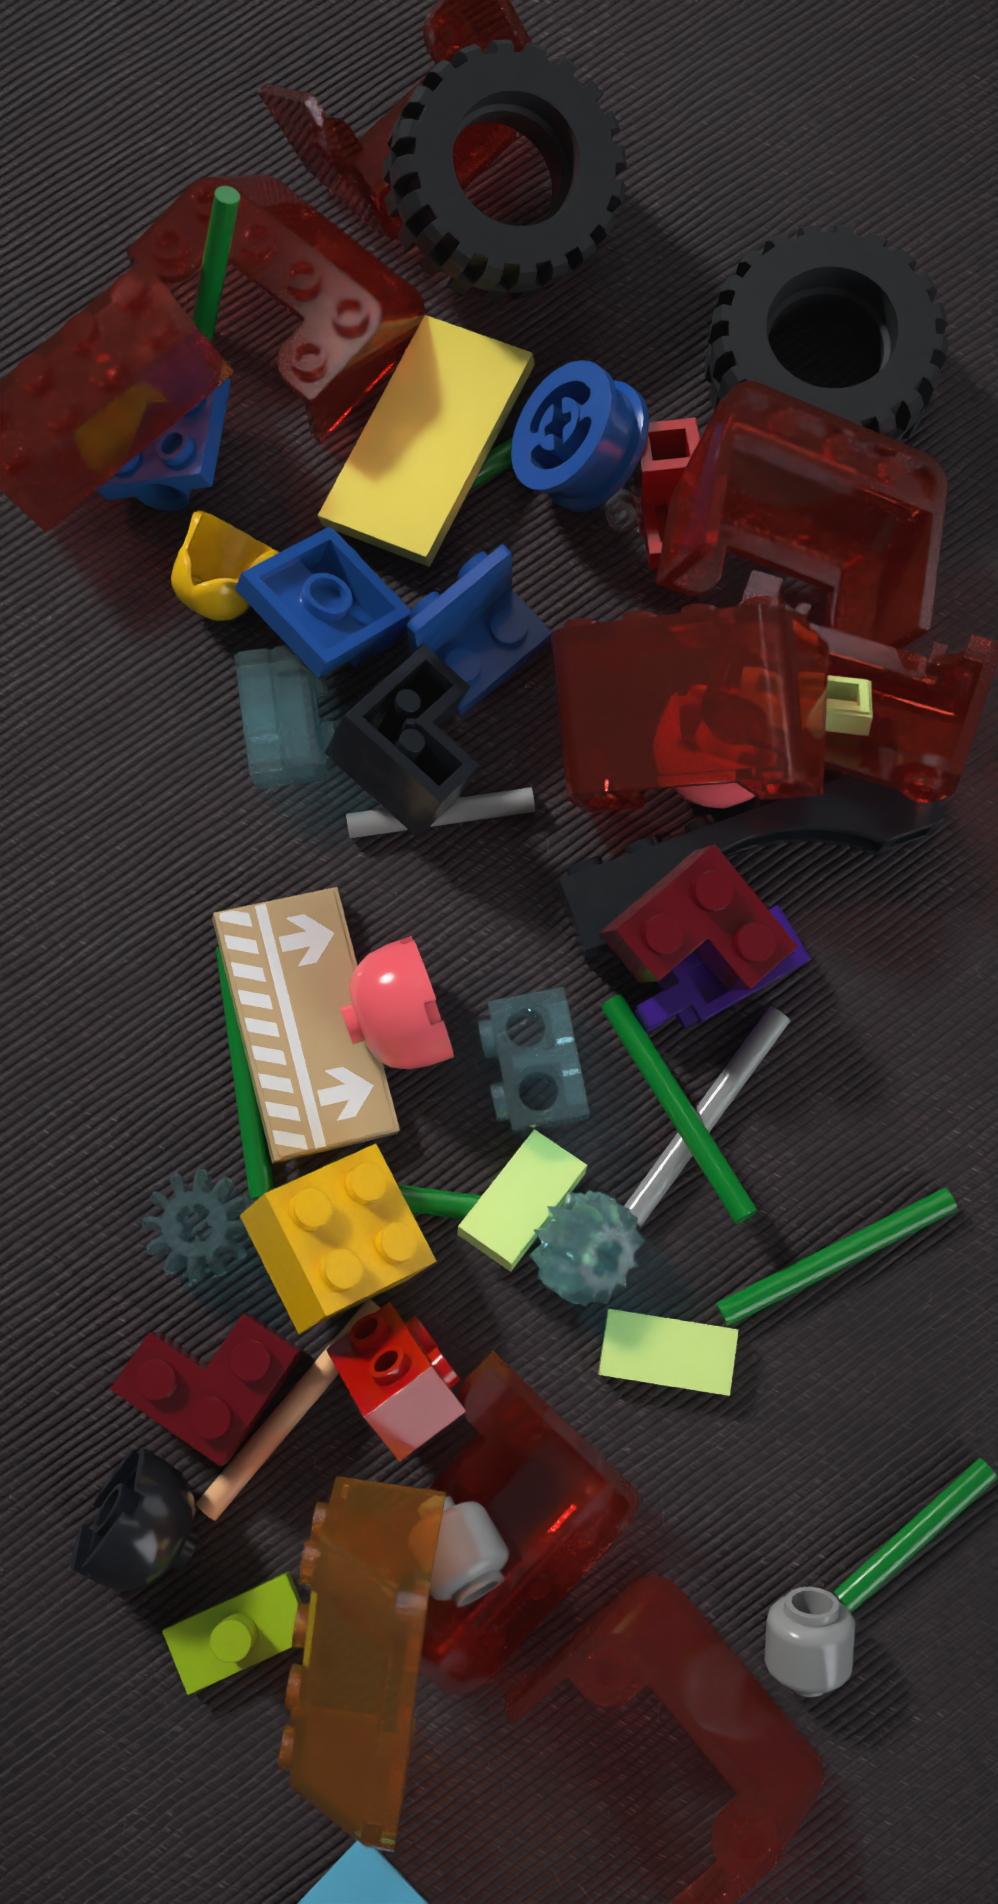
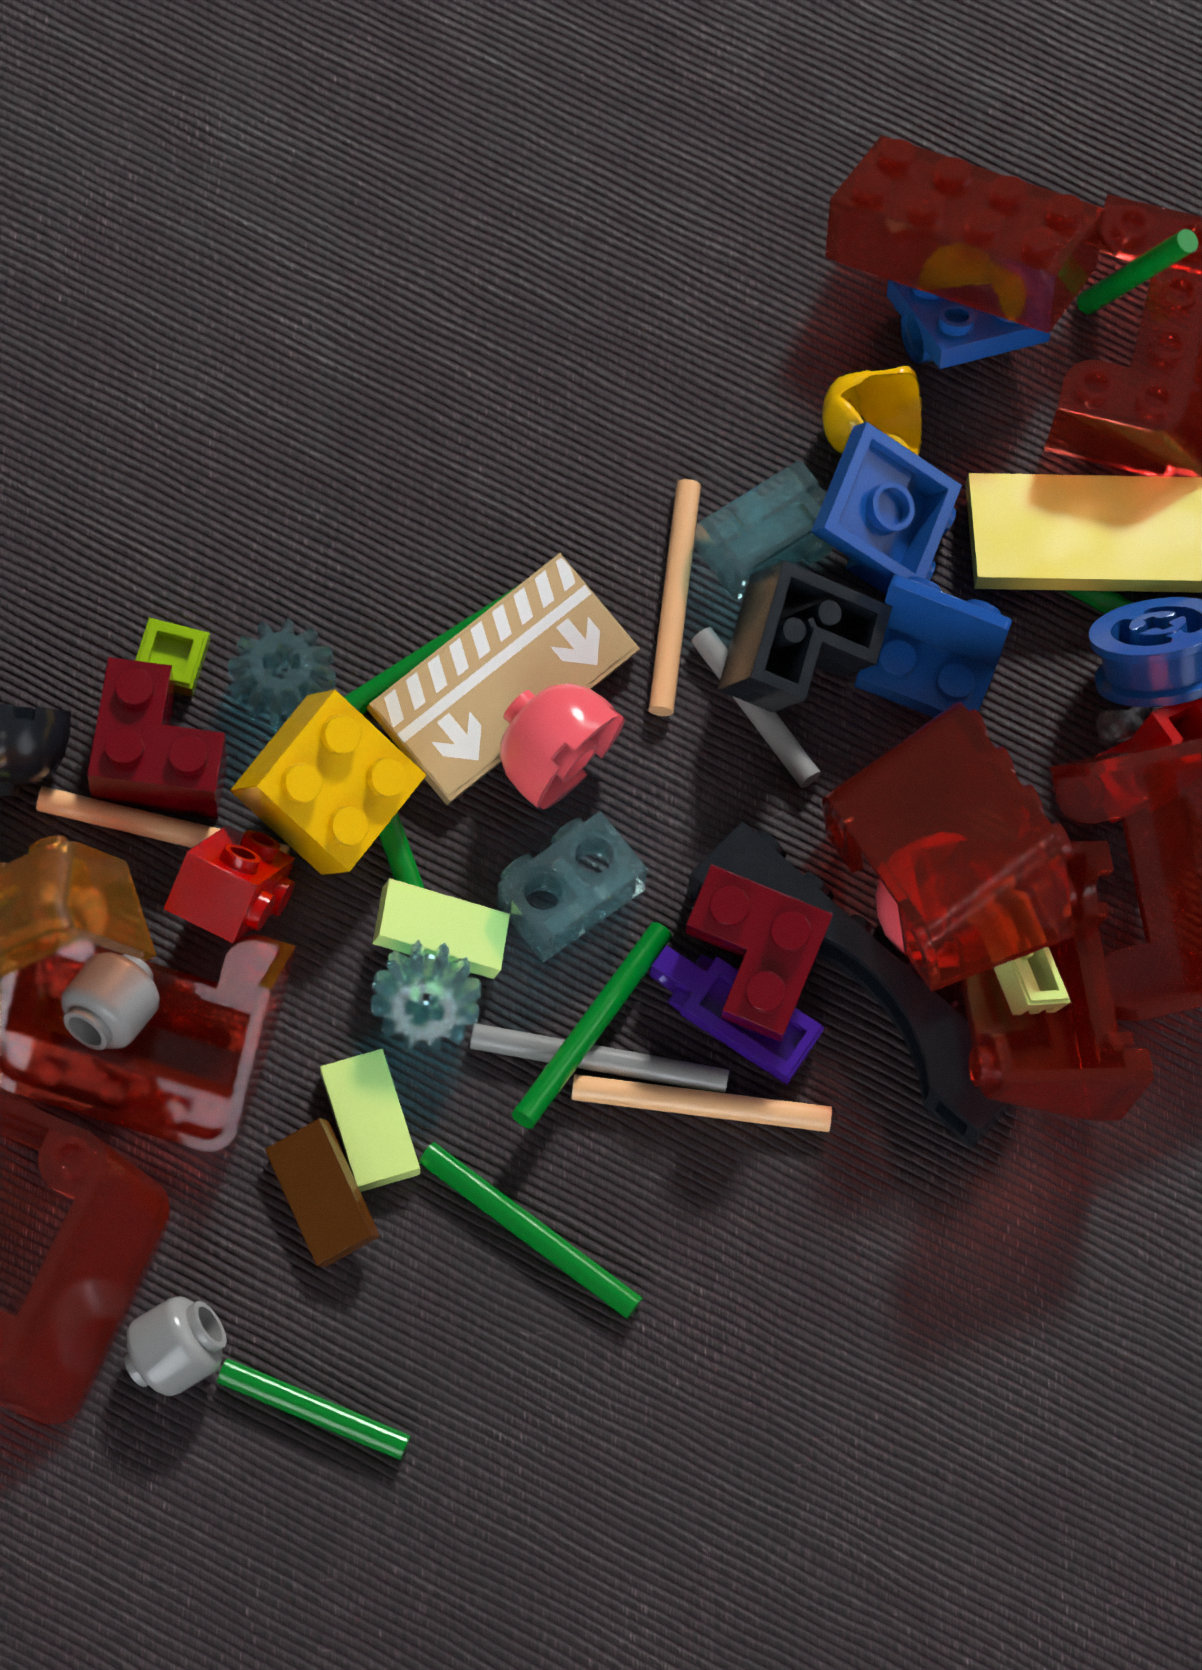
camera: 55 degrees right, 10 degrees down
(124, 1318) = (175, 646): none -> lime tile
(300, 831) = (674, 598): none -> light nougat bar
(720, 1430) = (322, 1192): none -> reddish brown tile
(789, 1046) = (701, 1103): none -> light nougat bar

